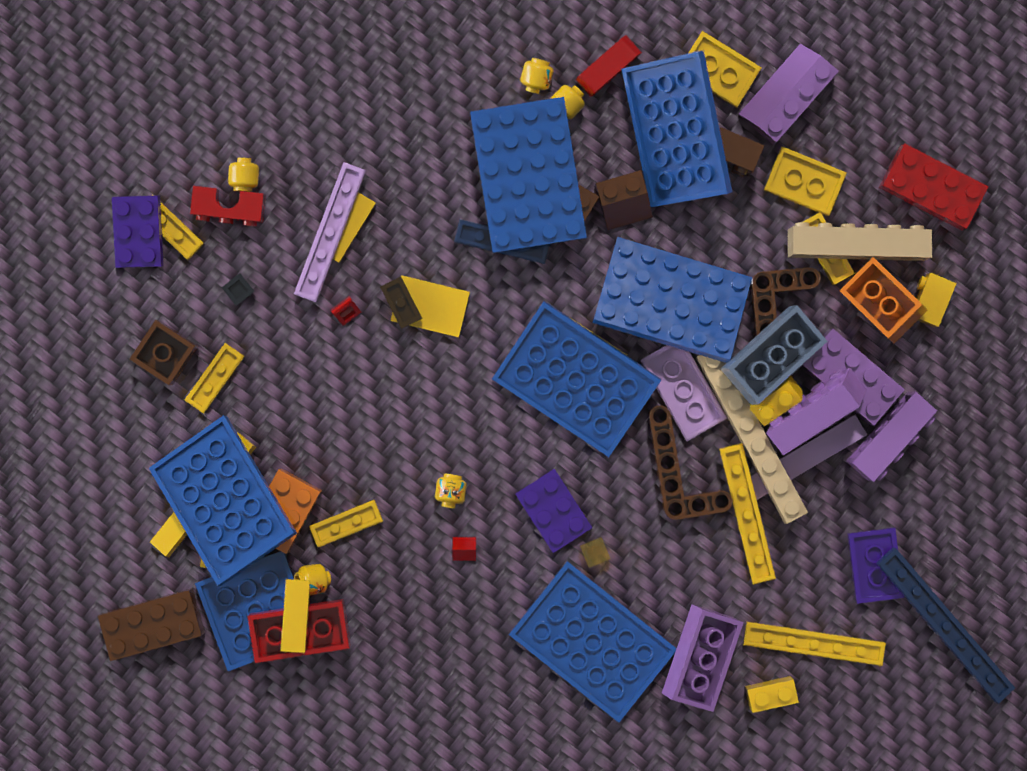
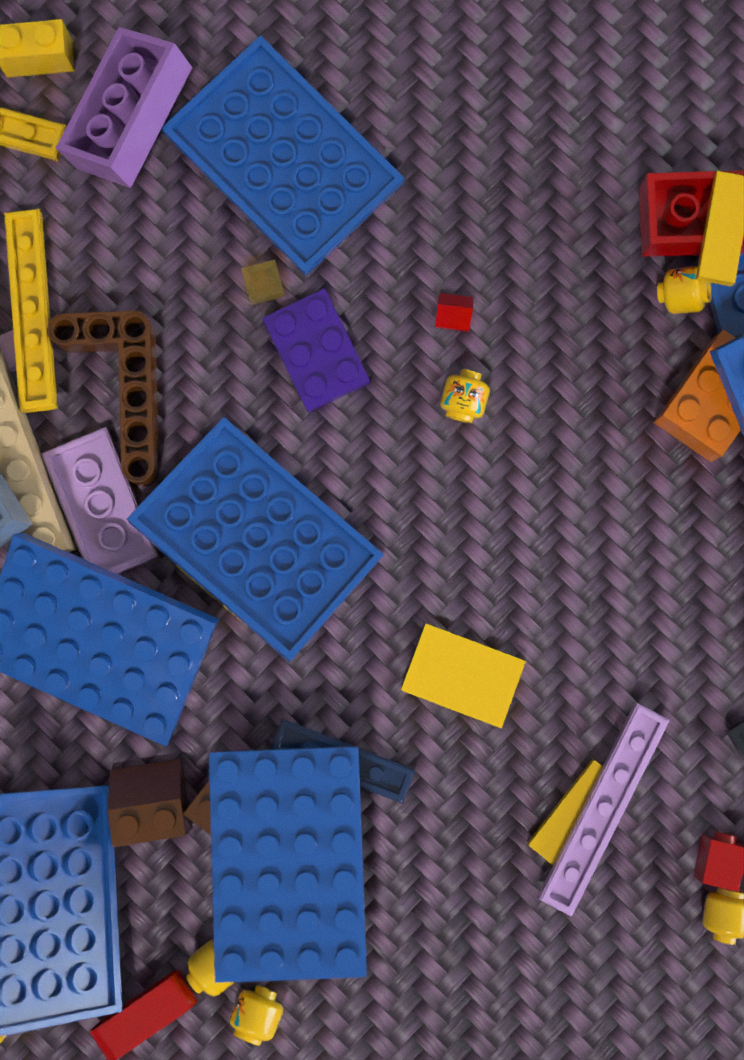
camera: 165 degrees left, 5 degrees down
(346, 310) = (591, 684): red slope -> none
(346, 523) = (624, 369): yellow tile -> none
(401, 302) = (507, 686): dark brown plate -> none

